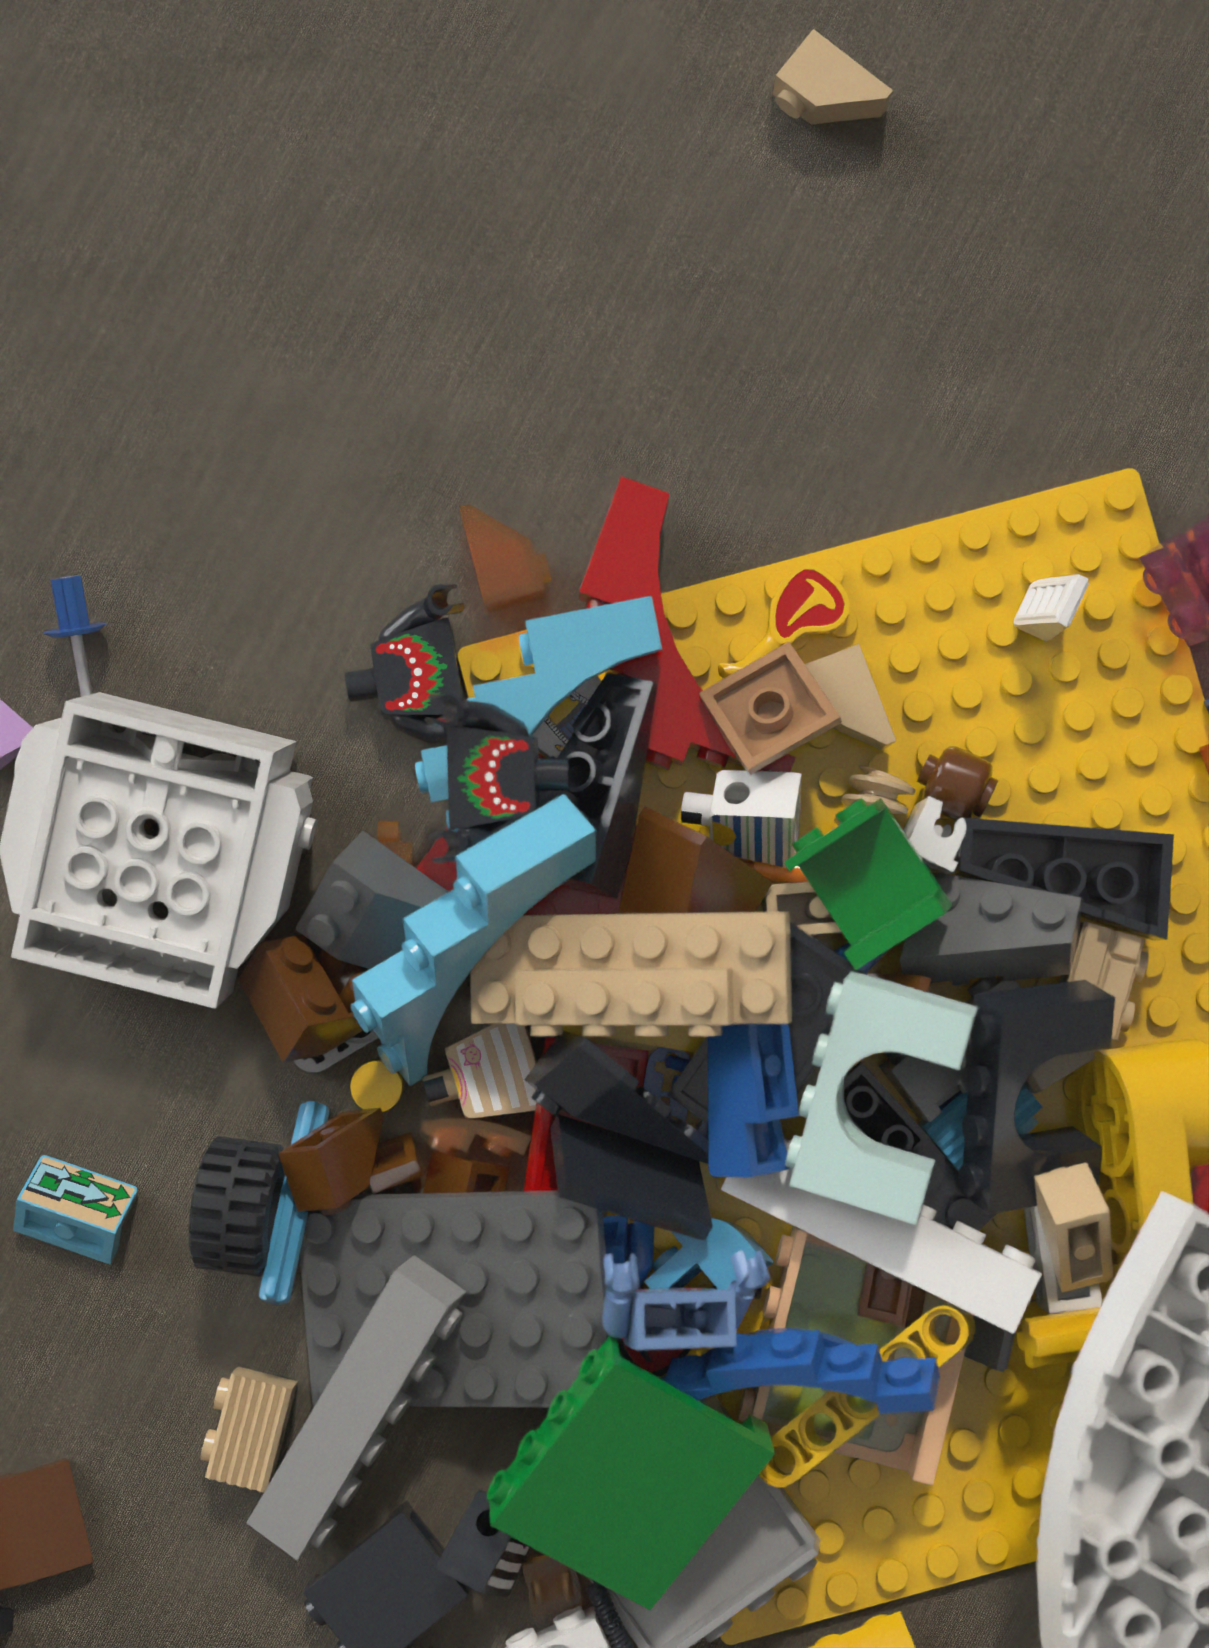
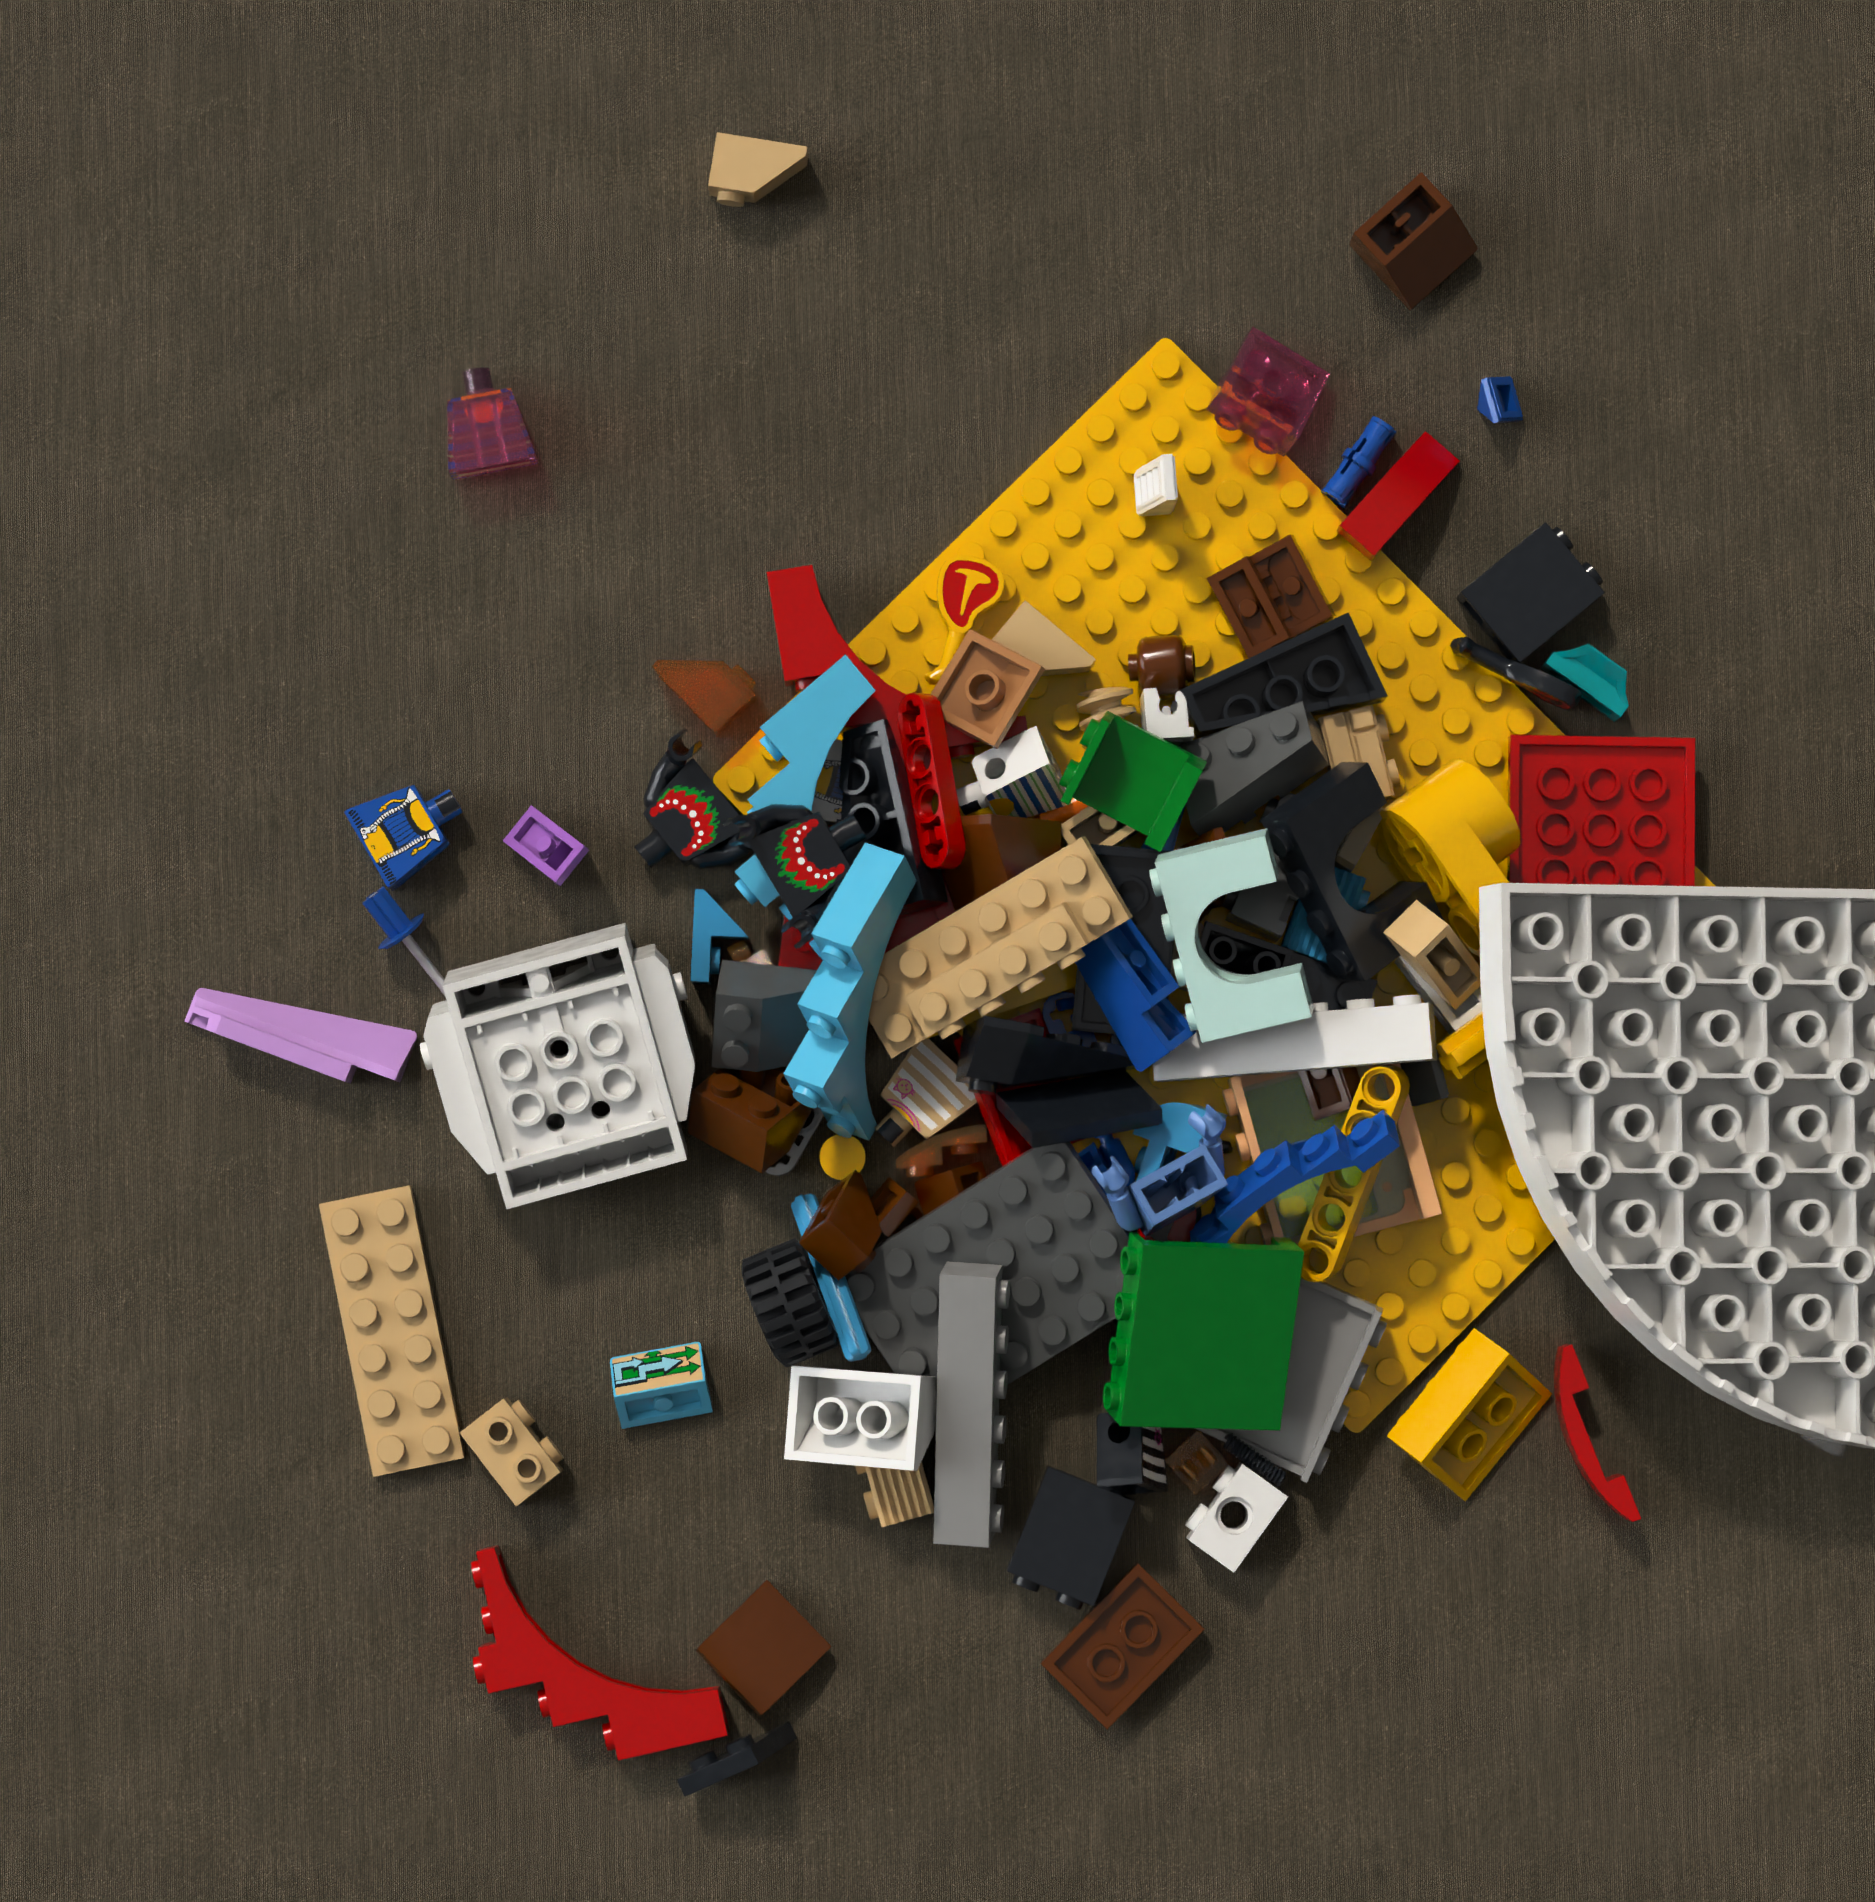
camera: 30 degrees left, 0 degrees up
(131, 533) = (403, 831): none -> torso
(243, 1359) = (860, 1417): none -> white slope
(260, 625) = (545, 845): none -> medium lavender slope
(374, 786) = (708, 924): none -> dark azure slope
(430, 195) = (486, 430): none -> clear pink torso
(643, 840) = (944, 844): none -> red beam
(1100, 775) = (1271, 596): none -> reddish brown slope

